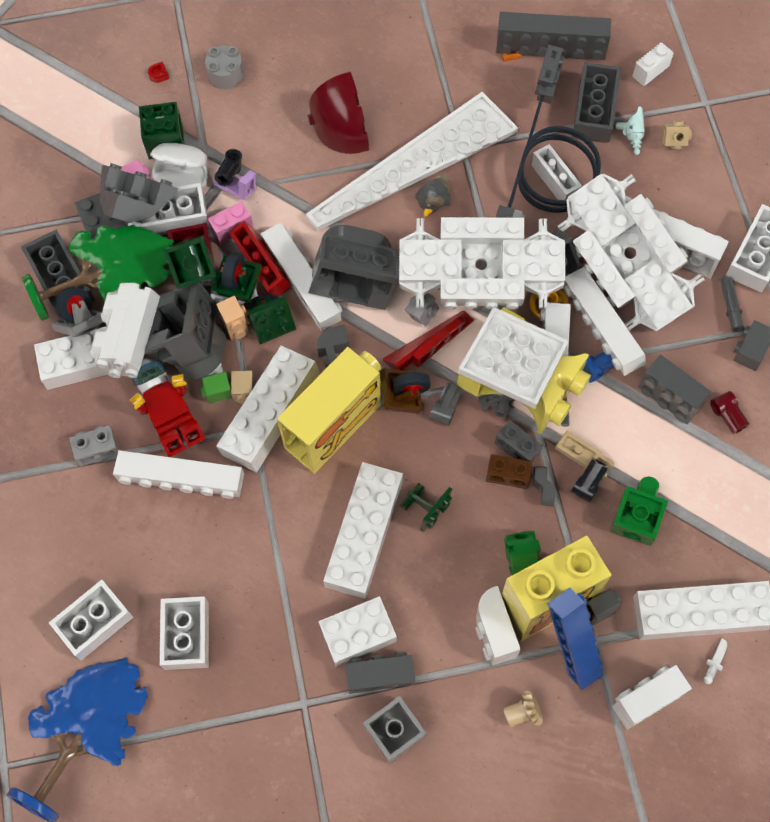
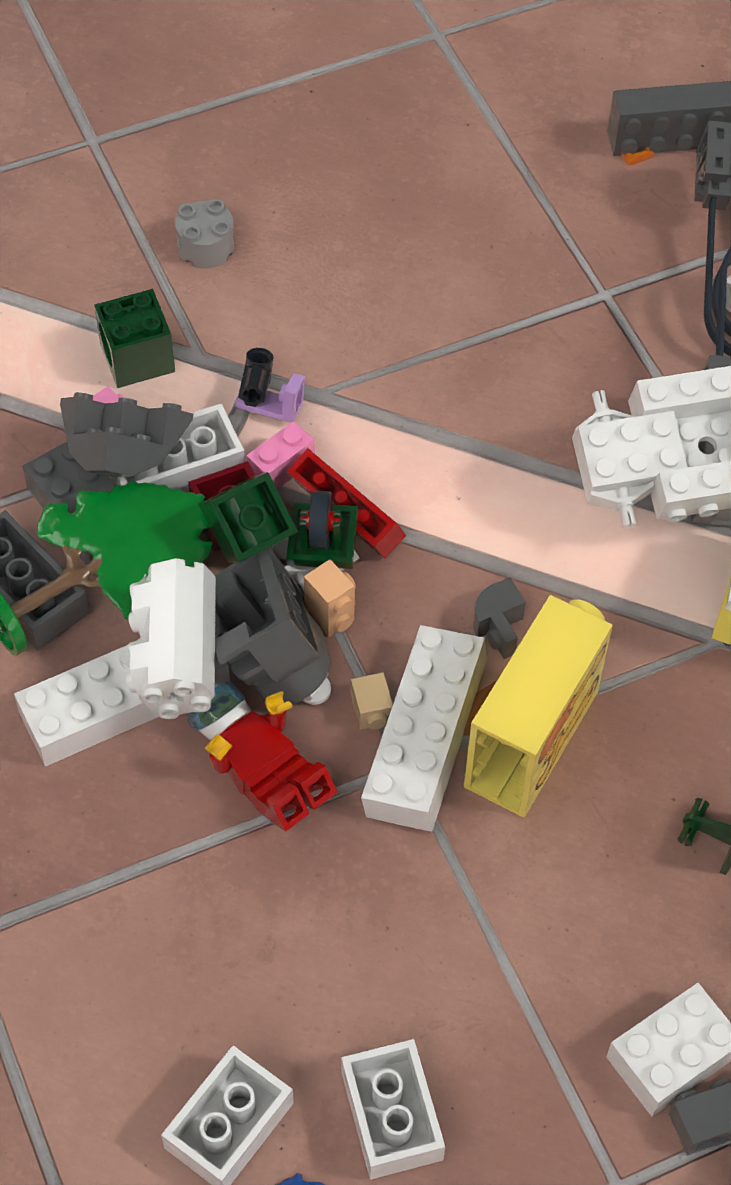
camera: 15 degrees left, 10 degrees down
(75, 312) = (71, 628): plate -> none
(94, 445) = (153, 837): light grey brick -> none
(158, 73) = (98, 259): red tile -> none
(178, 474) = (306, 857): white brick -> none
(179, 164) = (177, 379): white animal -> none
(216, 387) = (330, 711): bright green brick -> none
(270, 317) = (389, 587): dark green plate -> none
(299, 272) = (428, 528): white brick -> none
(337, 115) = (408, 273): dark red brick -> none
(355, 267) = (508, 487): dark grey brick -> none
(363, 530) = (635, 889): white brick -> none
(403, 389) = (636, 655): reddish brown plate -> none
(425, 314) = (620, 541): light grey brick -> none
(429, 343) = (646, 586): red wedge -> none
(434, 194) = (587, 366): dark grey hair -> none
(444, 408) = (703, 677): dark grey piece -> none
(452, 139) = (583, 289): white wing -> none

